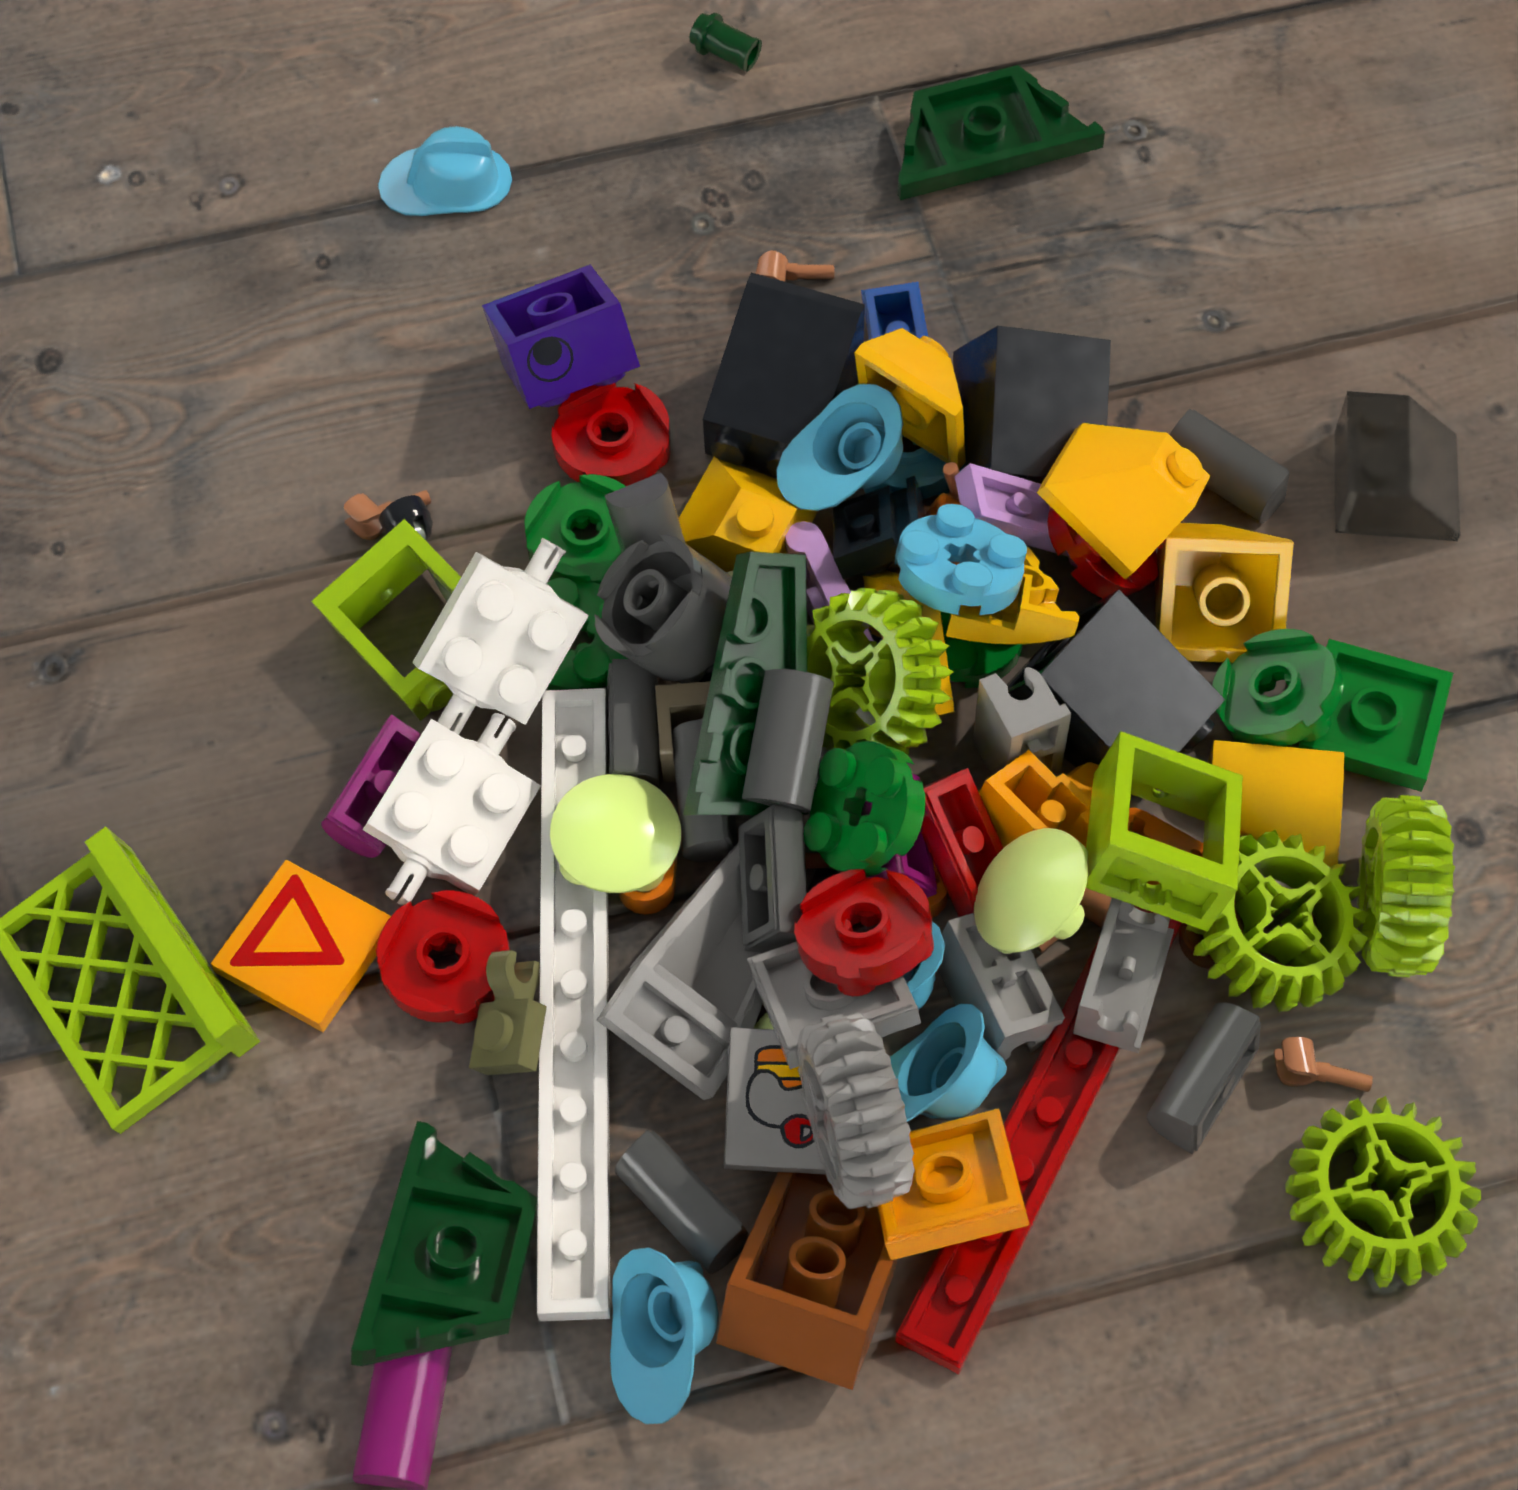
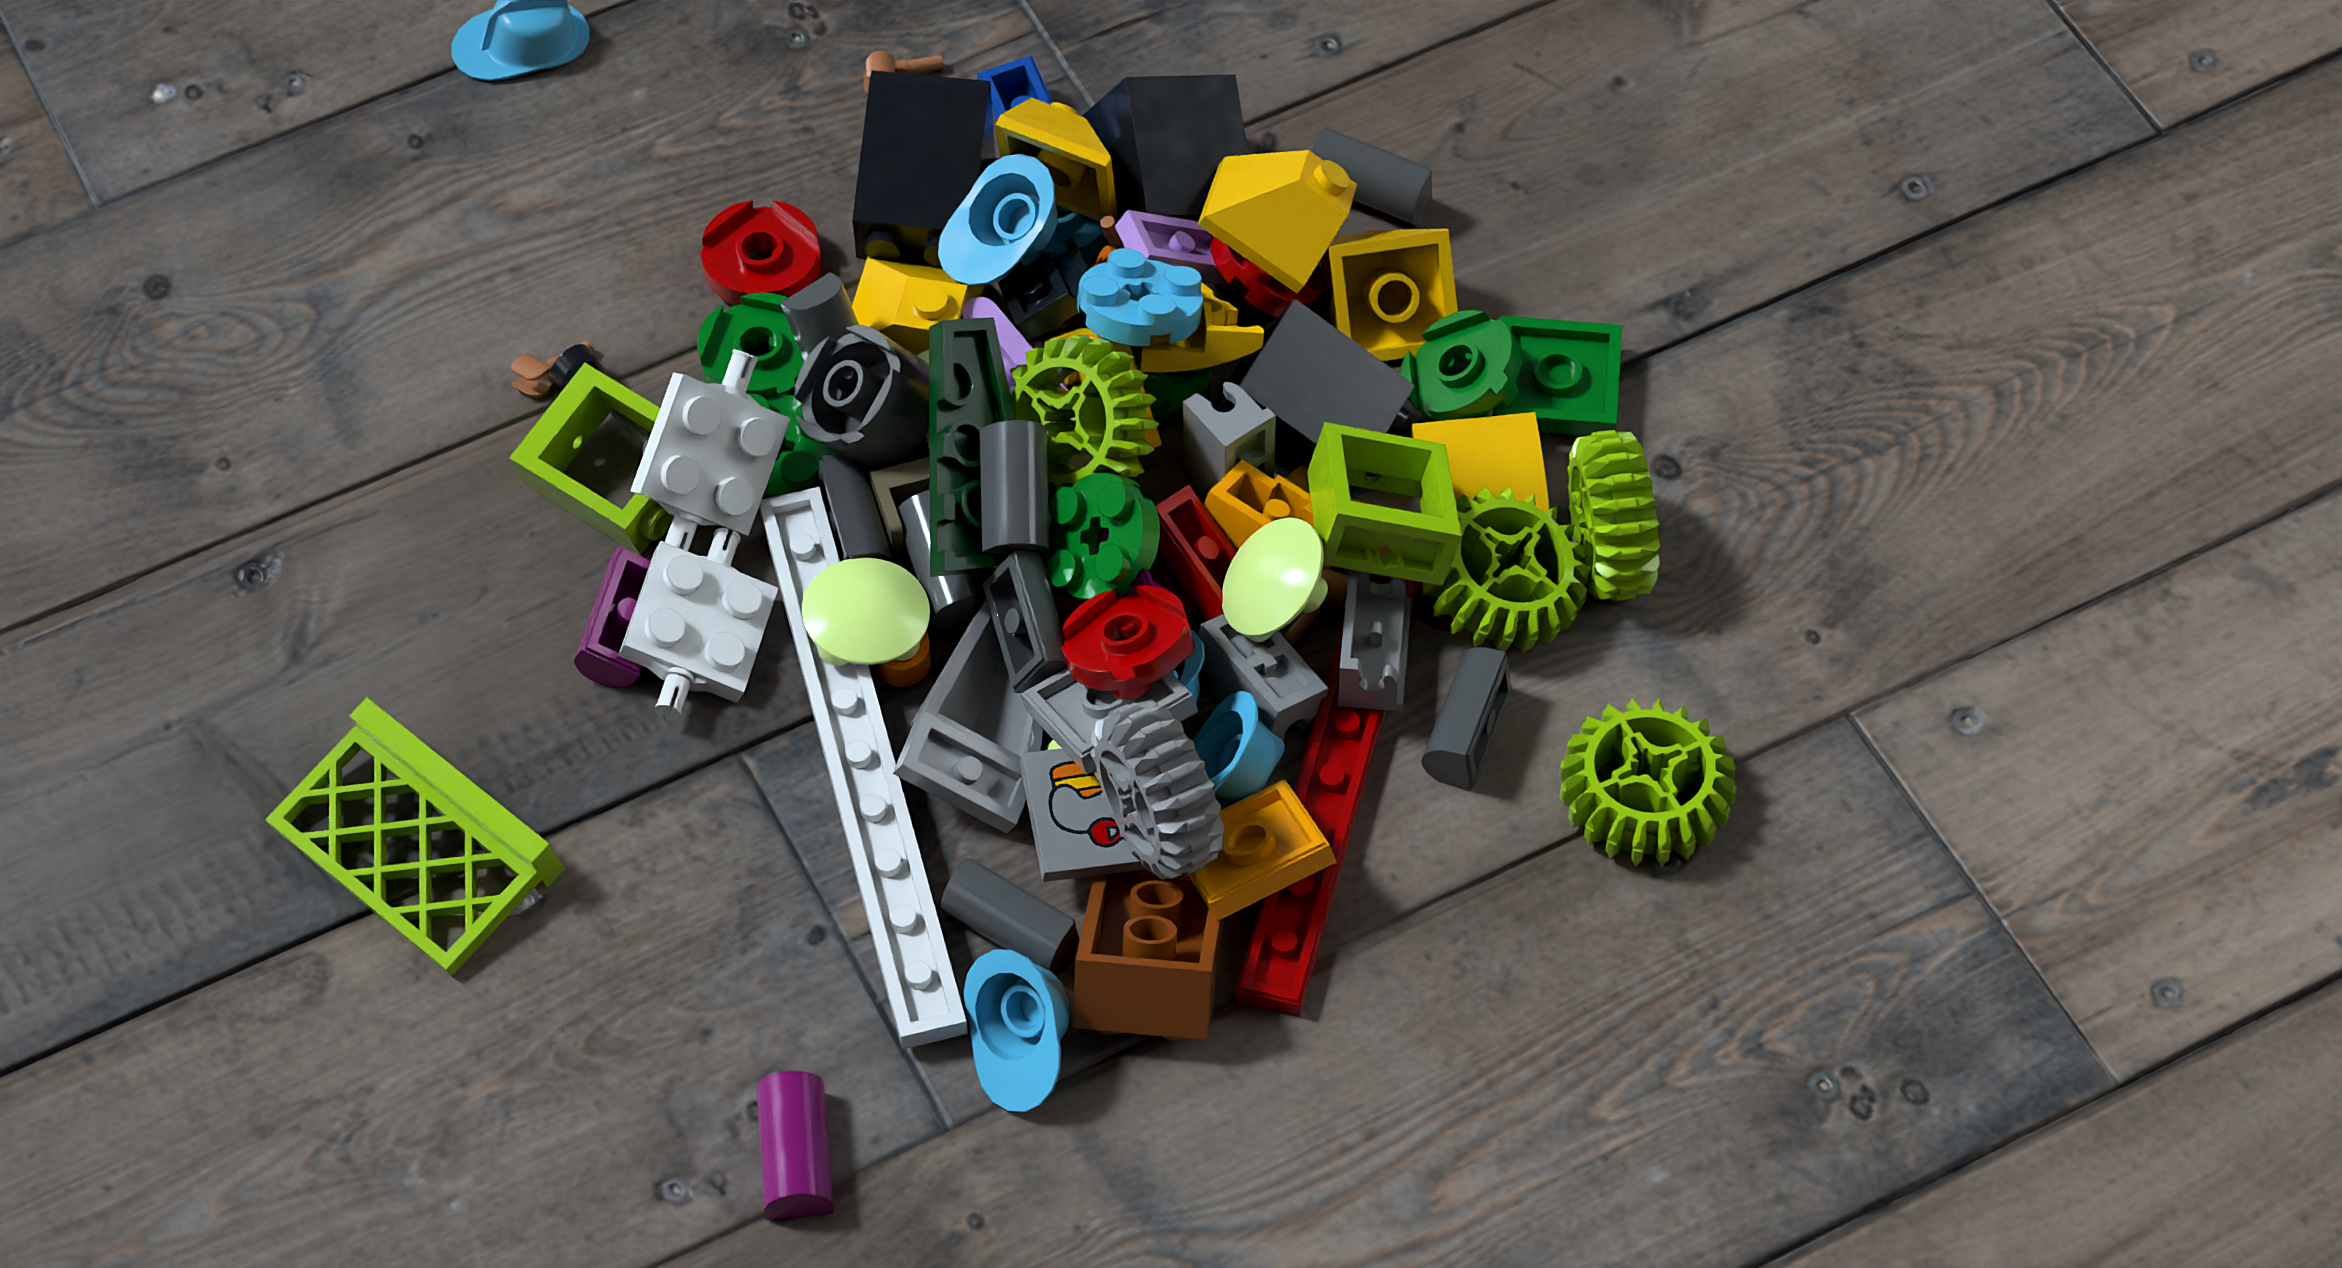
camera: 15 degrees left, 5 degrees down
(302, 945) = (585, 774): light orange tile -> none
(432, 924) = (726, 789): red plate -> none
(446, 1256) = (803, 1004): dark green wing -> none
(511, 1026) = (810, 802): olive plate -> none
(561, 337) = (691, 167): dark purple brick -> none
(1298, 1067) = (1551, 696): nougat hand -> none
(1395, 469) = (1530, 152): clear smoke slope -> none

